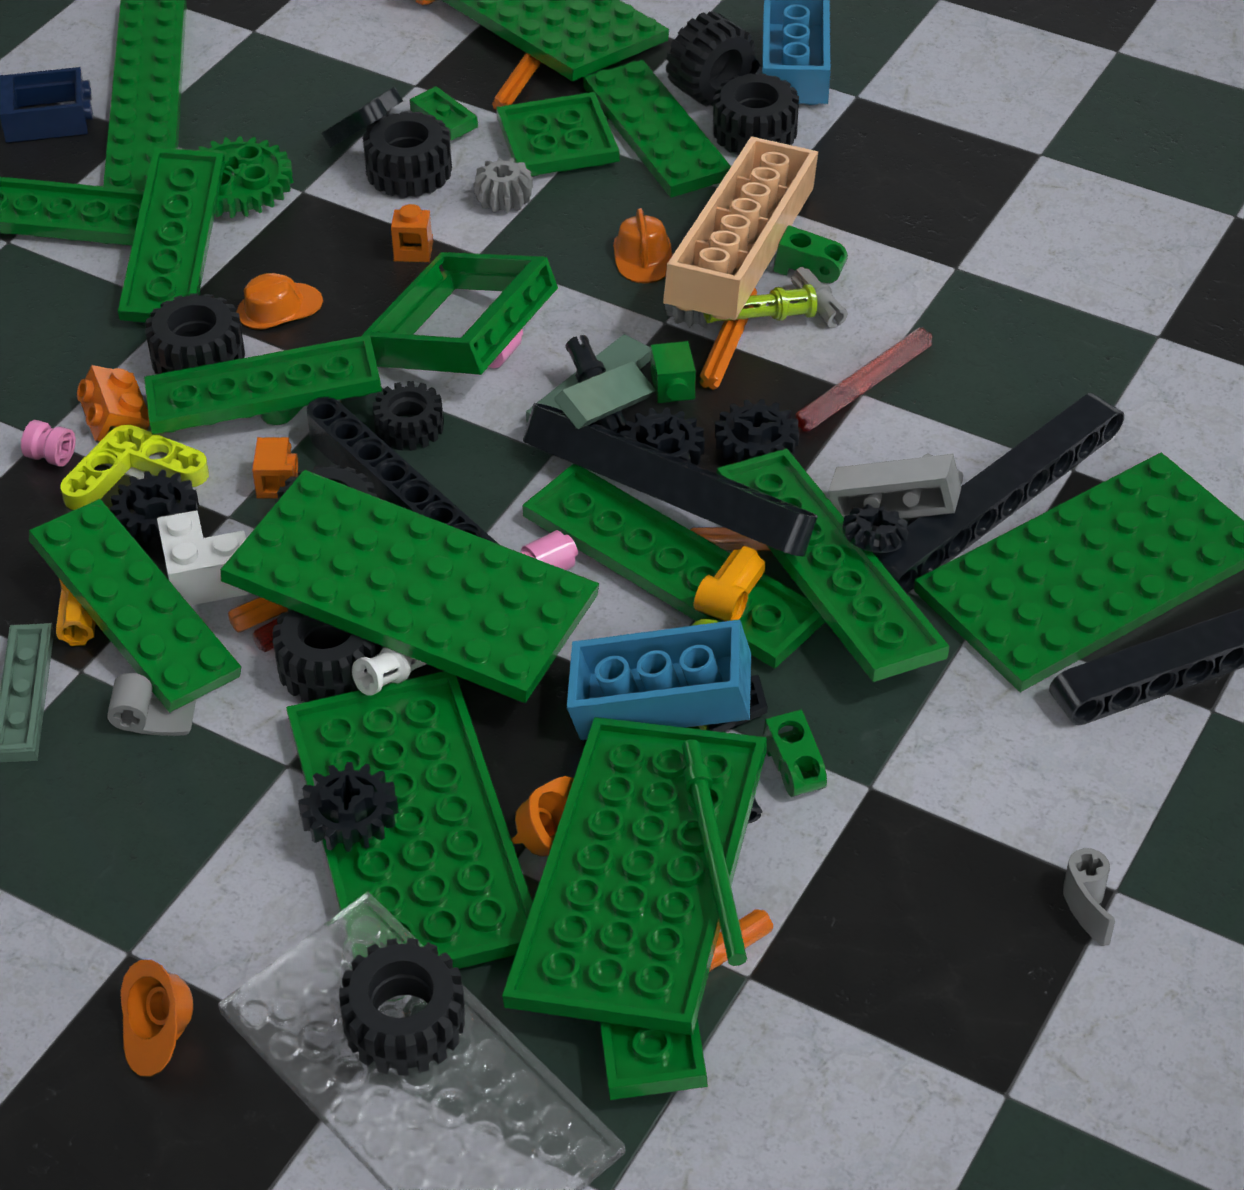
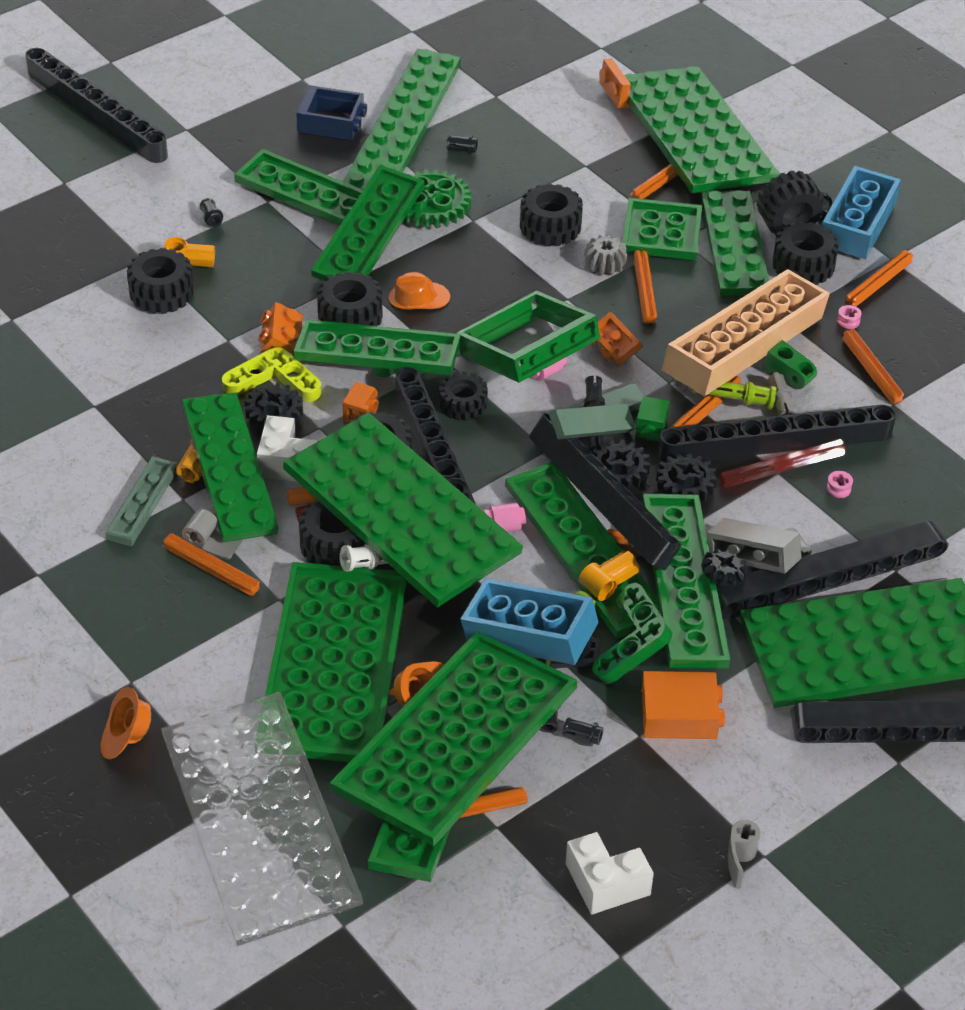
camera: 20 degrees right, 0 degrees up
(45, 442) = (230, 347): bright pink wheel -> none
(168, 747) = (211, 564): none -> orange axle
(241, 98) = (465, 144): none -> black pin
(348, 806) = (296, 636): black gear -> none
(362, 117) = (535, 179): black beam -> none
(398, 972) = (259, 745): black tyre -> none
(411, 226) = (526, 266): orange brick -> none
(442, 106) = (592, 192): green plate -> none
(573, 211) = (645, 287): none -> orange axle
(579, 288) = (616, 340): none -> orange bracket
(642, 248) = (677, 321): orange piece -> none
(699, 783) = (515, 693): green bar -> none
(795, 753) = (597, 696): green leg -> none
(799, 805) = (583, 731): none -> black pin
(818, 642) = (645, 631): none -> green beam
(838, 343) = (778, 433): none -> black beam
(846, 177) = (846, 321): none -> bright pink bush
(857, 122) = (879, 278): none -> orange axle
(908, 727) = (681, 705): none -> orange brick
(909, 228) = (873, 366): none -> orange axle
(934, 996) = (606, 879): none -> white brick
(948, 383) = (842, 478): none -> bright pink bush

